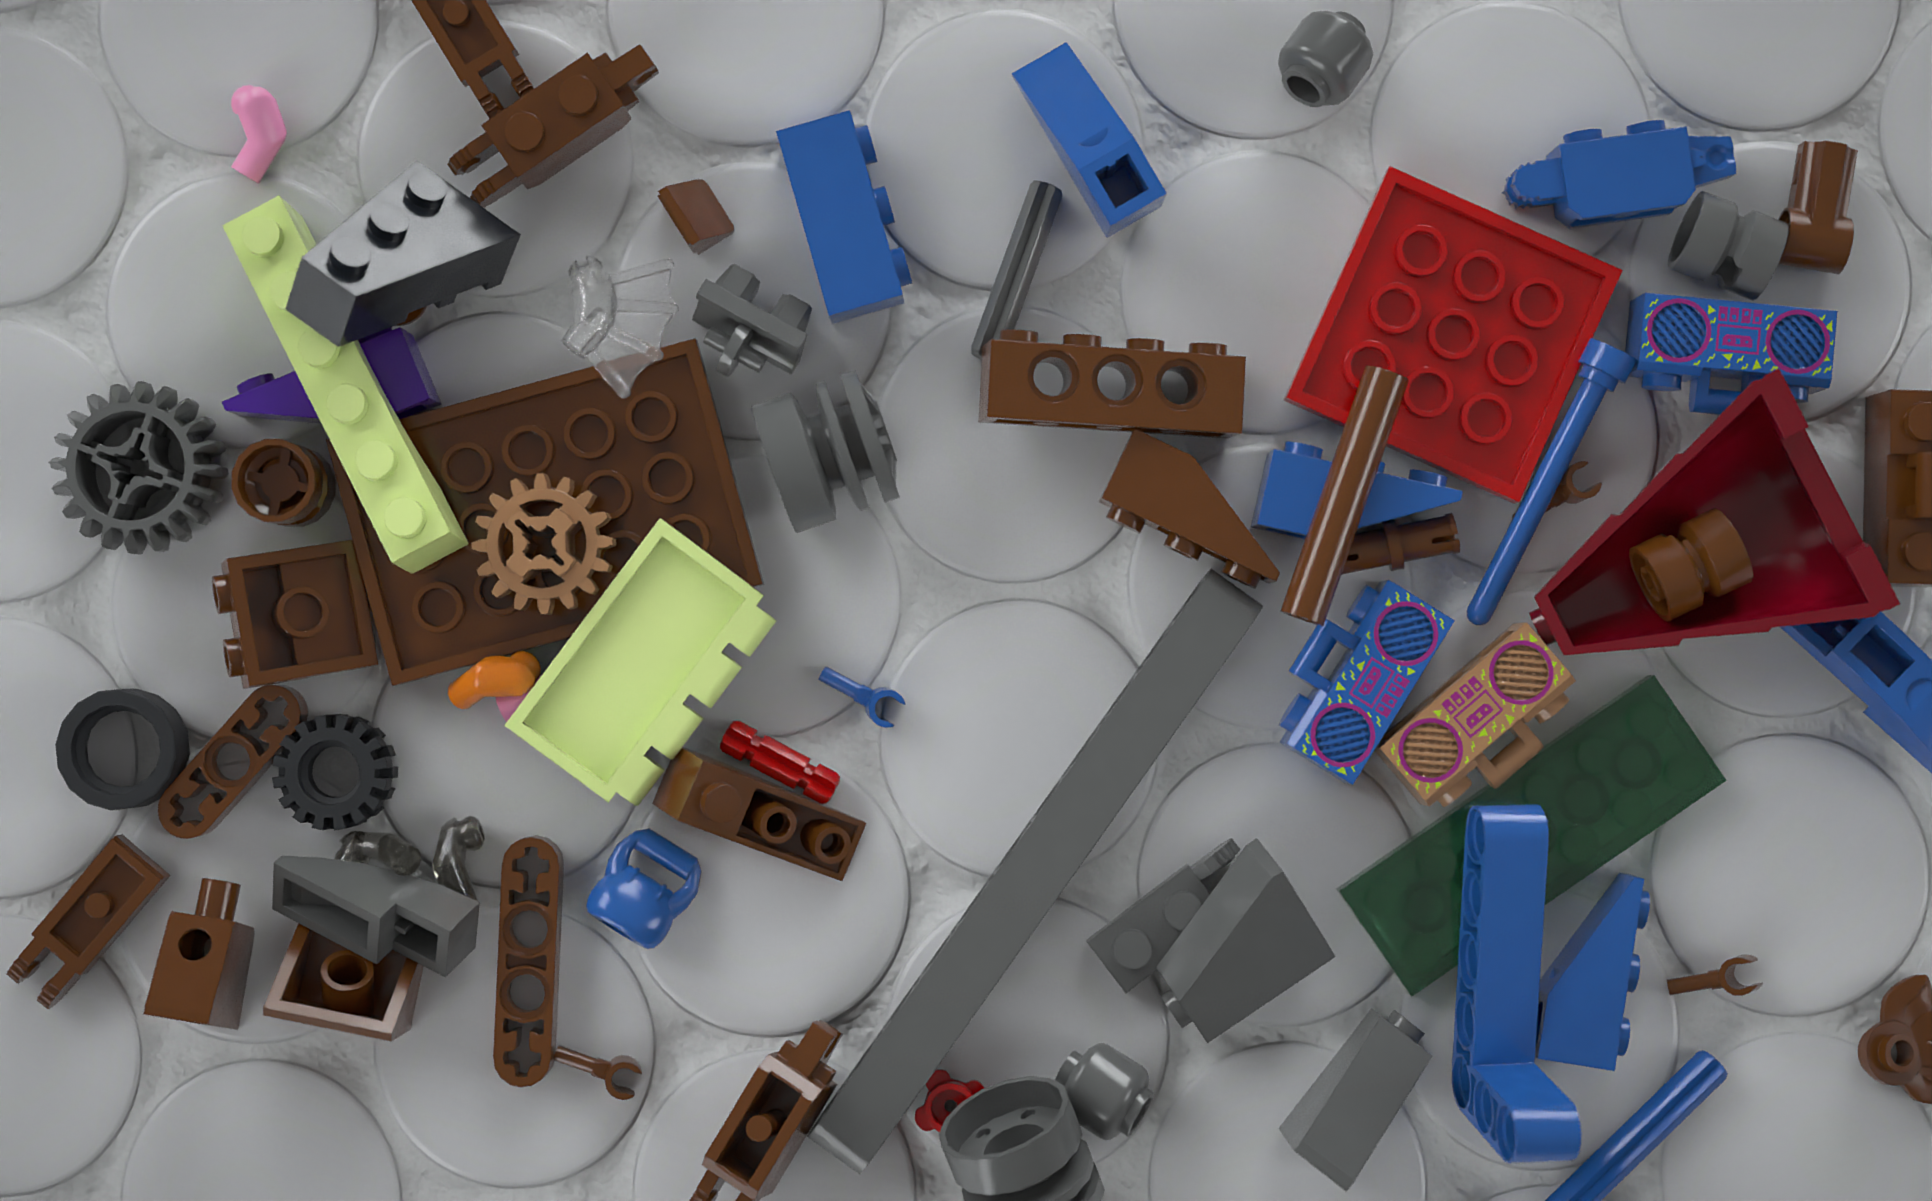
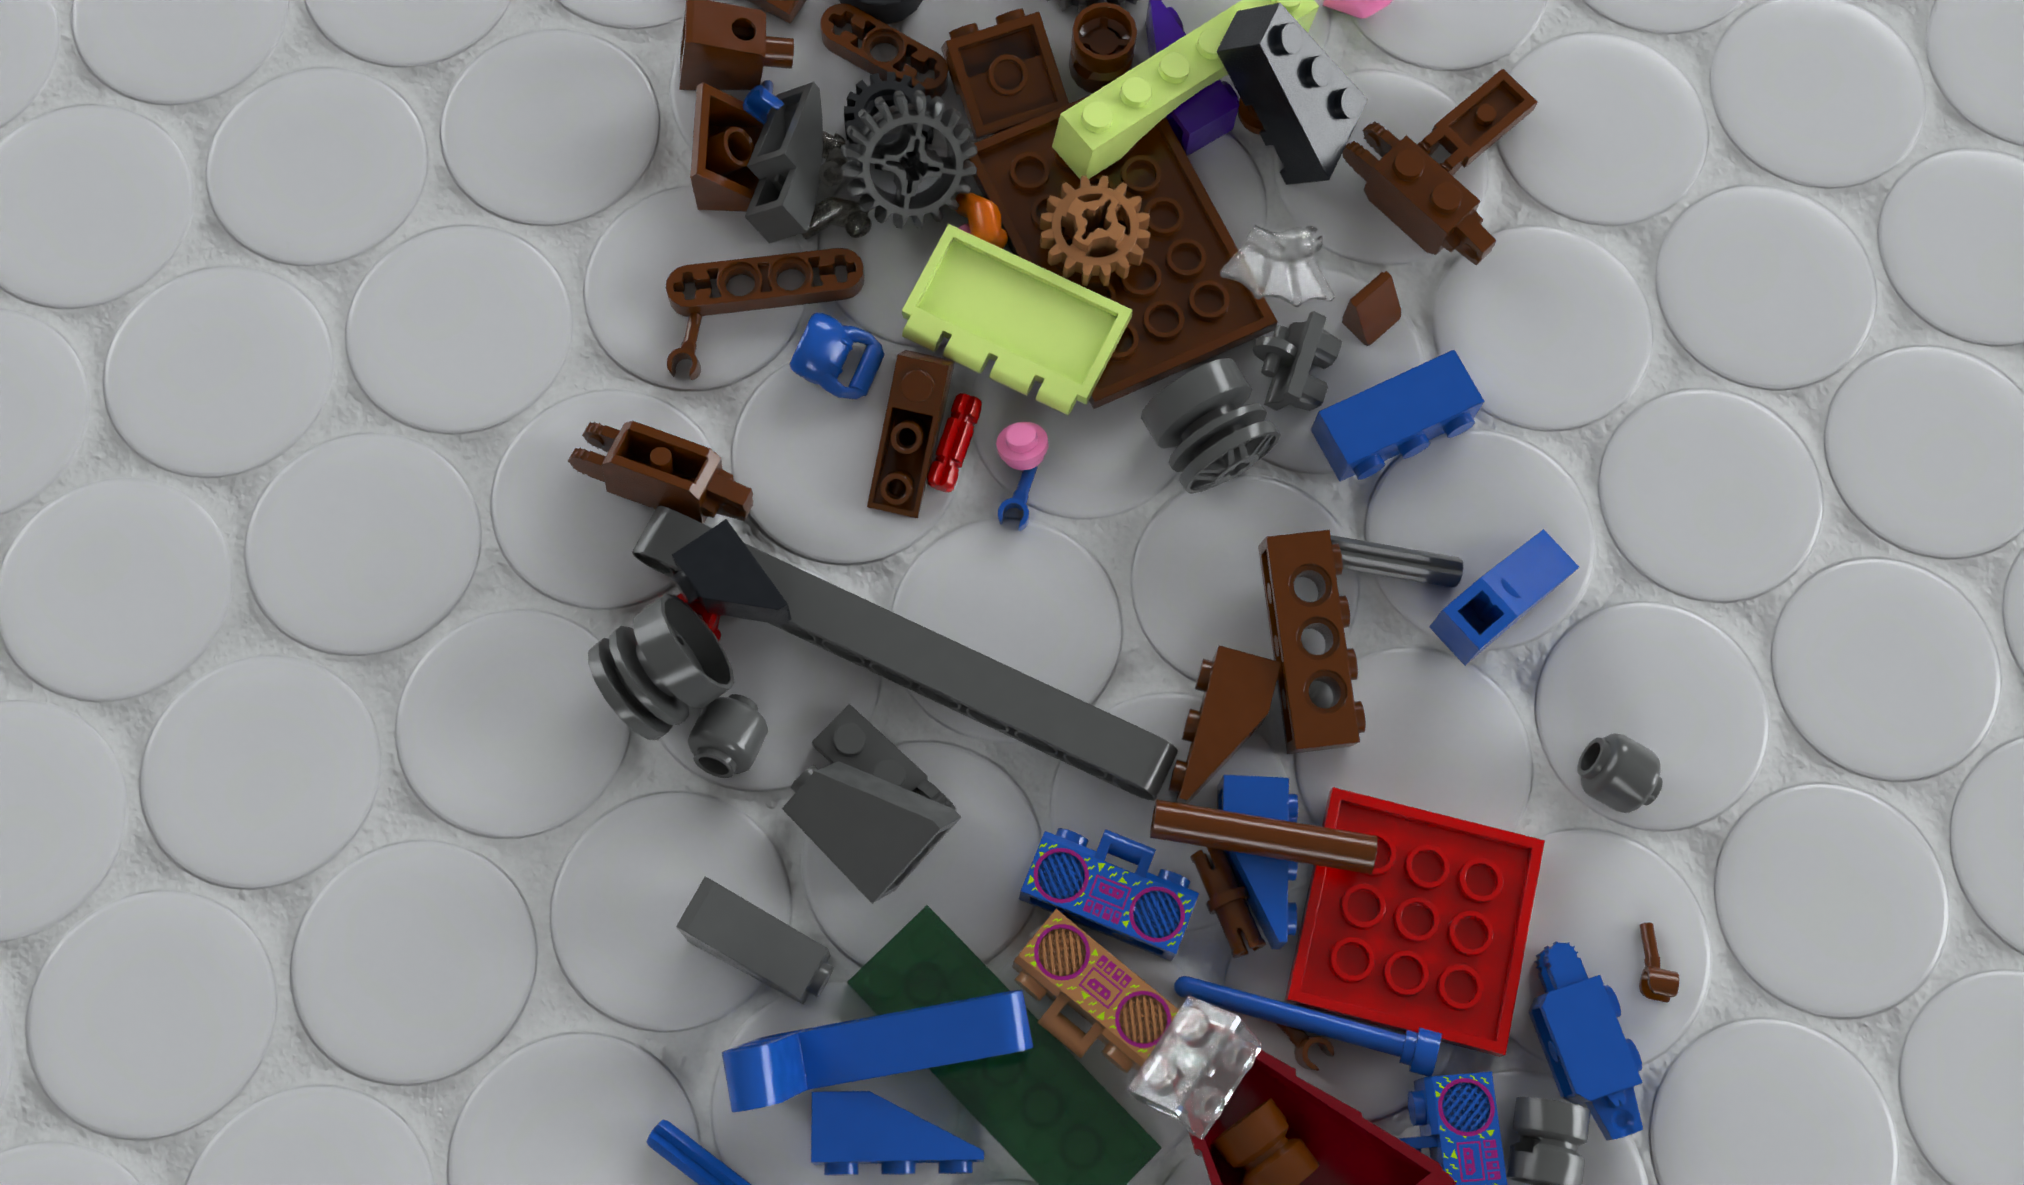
camera: 75 degrees right, 15 degrees down
(286, 932) = (761, 100): none -> blue hand
(381, 785) = (947, 169): none -> dark grey gear
(799, 681) = (1022, 445): none -> bright pink plate
(927, 1069) = (727, 578): none -> black slope
(1563, 79) = (1655, 982): none -> reddish brown hand
(1591, 626) = (1196, 1065): none -> clear bracket

